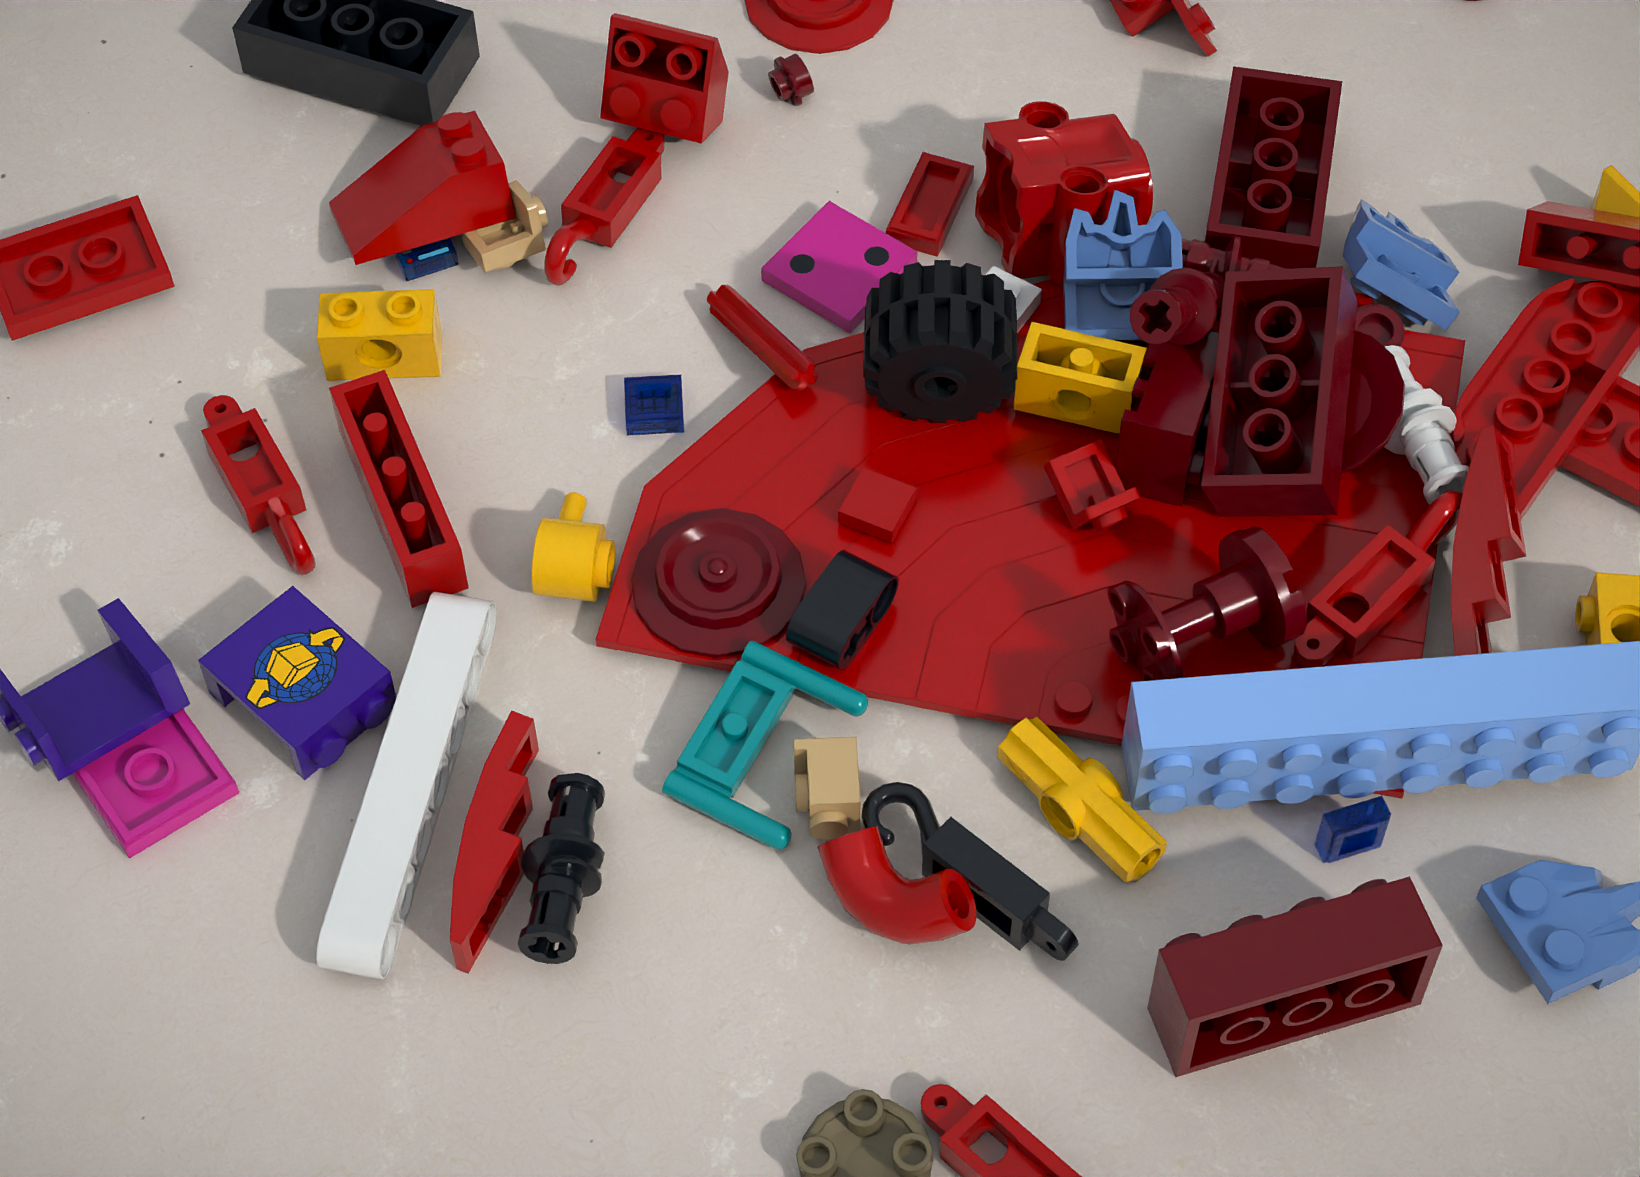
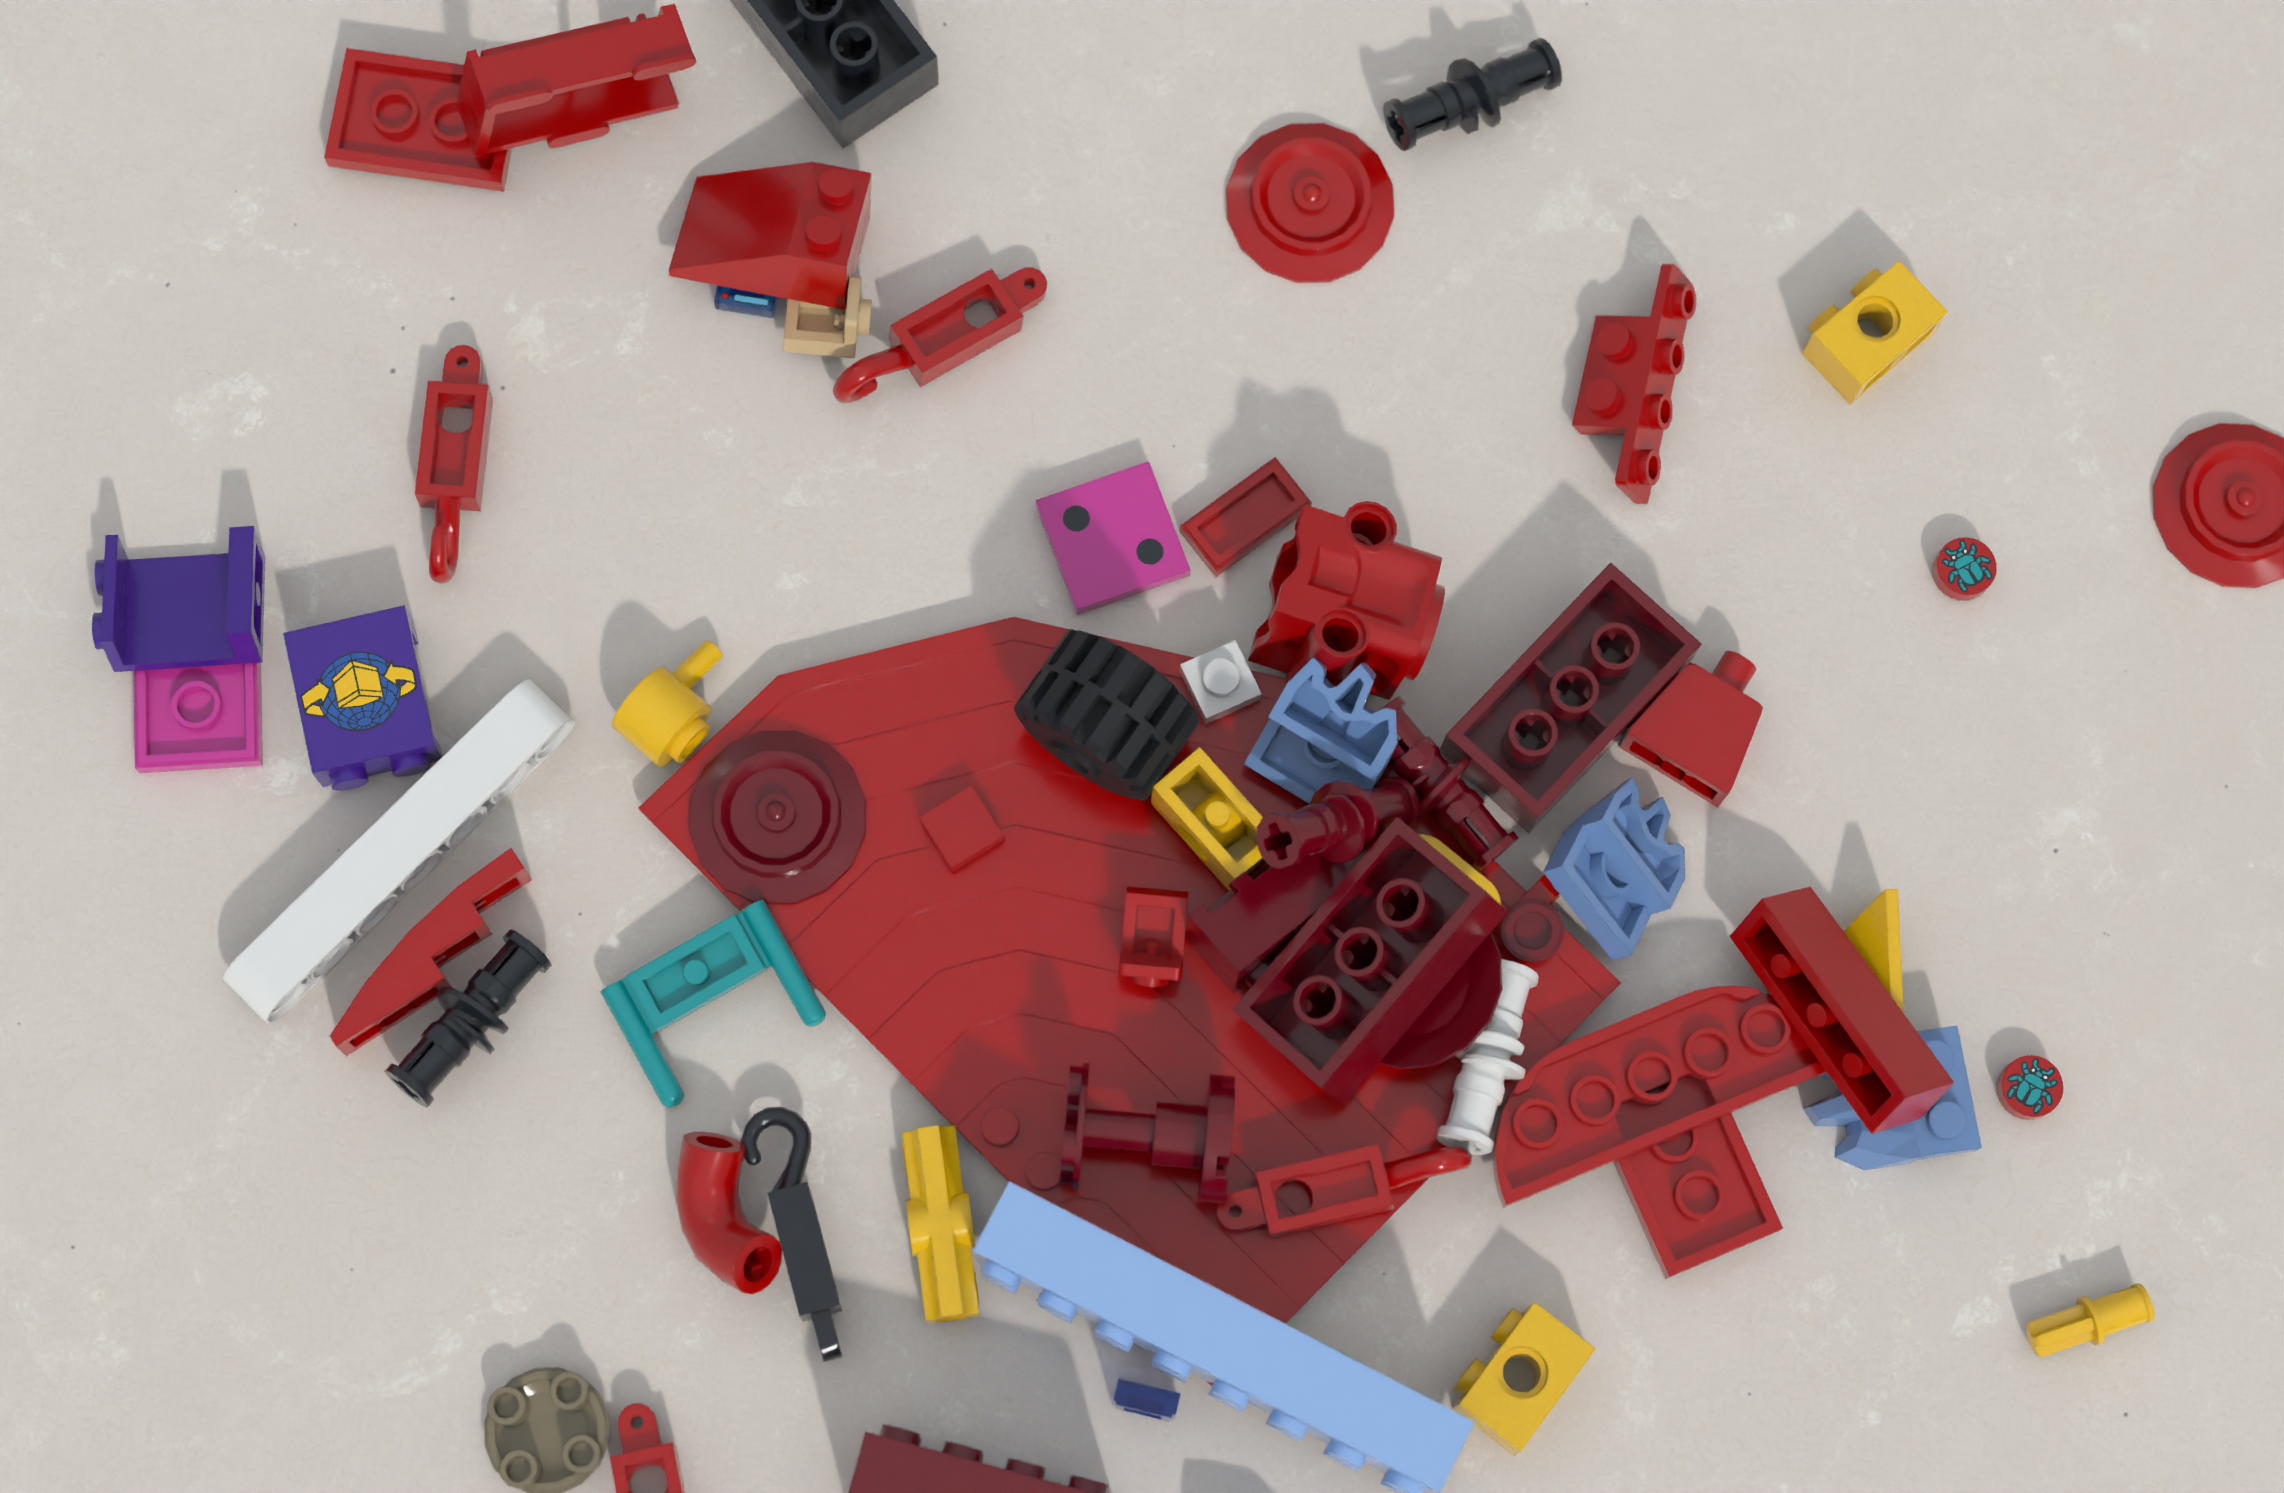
camera: 25 degrees right, 20 degrees up
(198, 194) = (572, 82): none -> red piece
(379, 332) = (644, 369): yellow brick -> none
(399, 488) = (557, 552): red brick -> none
(654, 405) = (848, 587): clear blue tile -> none
(663, 79) = (1067, 246): red slope -> none
(762, 338) = (980, 582): red axle -> none
(791, 79) = (1208, 295): dark red plate -> none
(828, 785) = (736, 1080): tan brick -> none
(842, 609) = (855, 920): black beam -> none
(1381, 156) = (1699, 727): none -> red torso
(1484, 538) = (1462, 1204): red slope -> none

